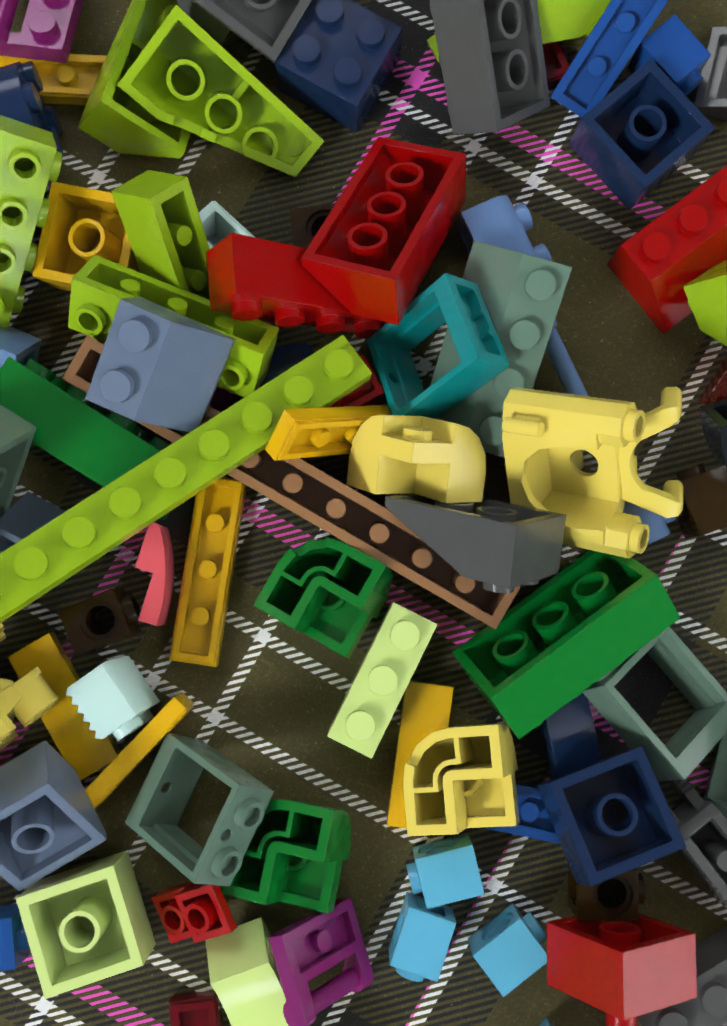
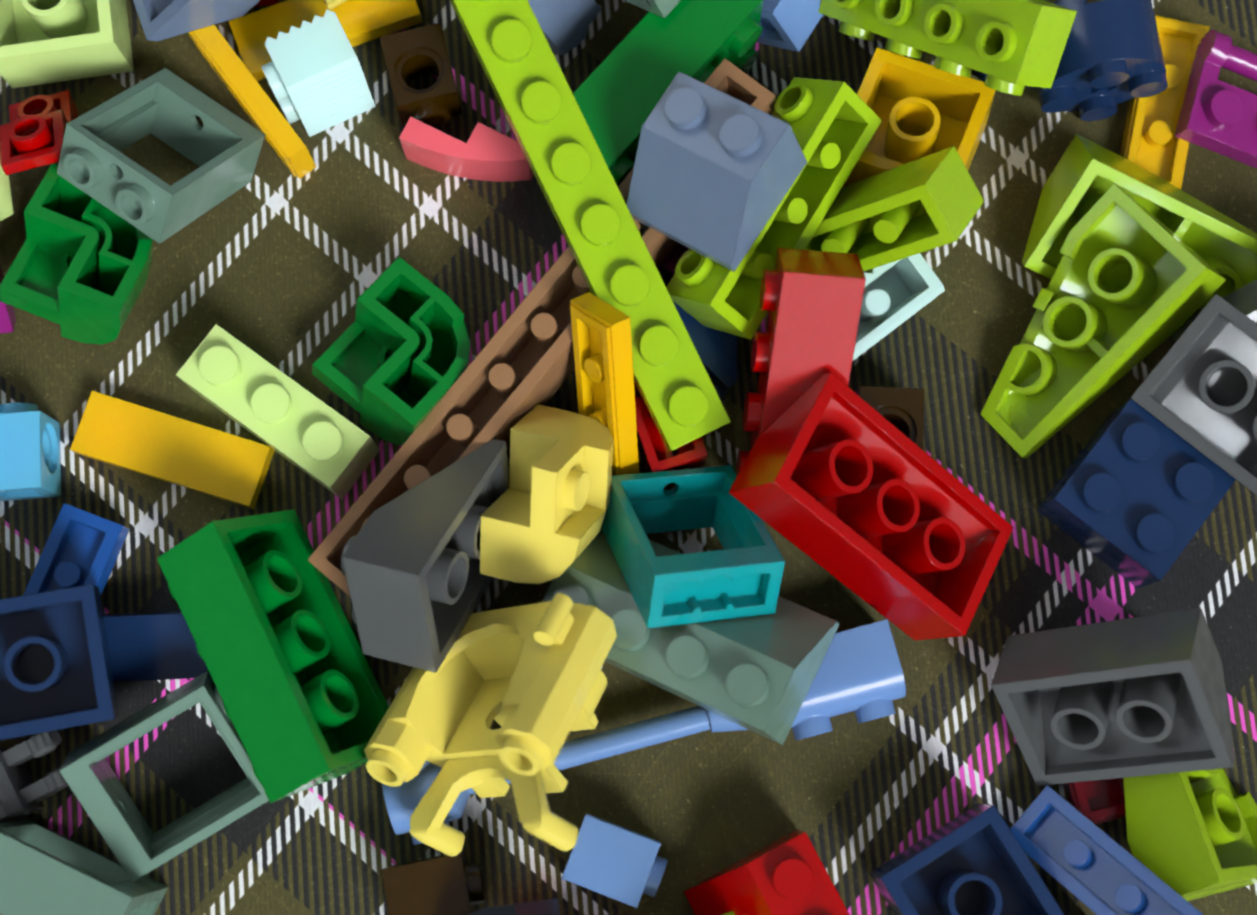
camera: 100 degrees right, 5 degrees down
(208, 573) = (452, 216): yellow tile -> none
(461, 781) = (122, 482): light yellow brick -> none
(654, 369) = (615, 861): none -> medium blue brick

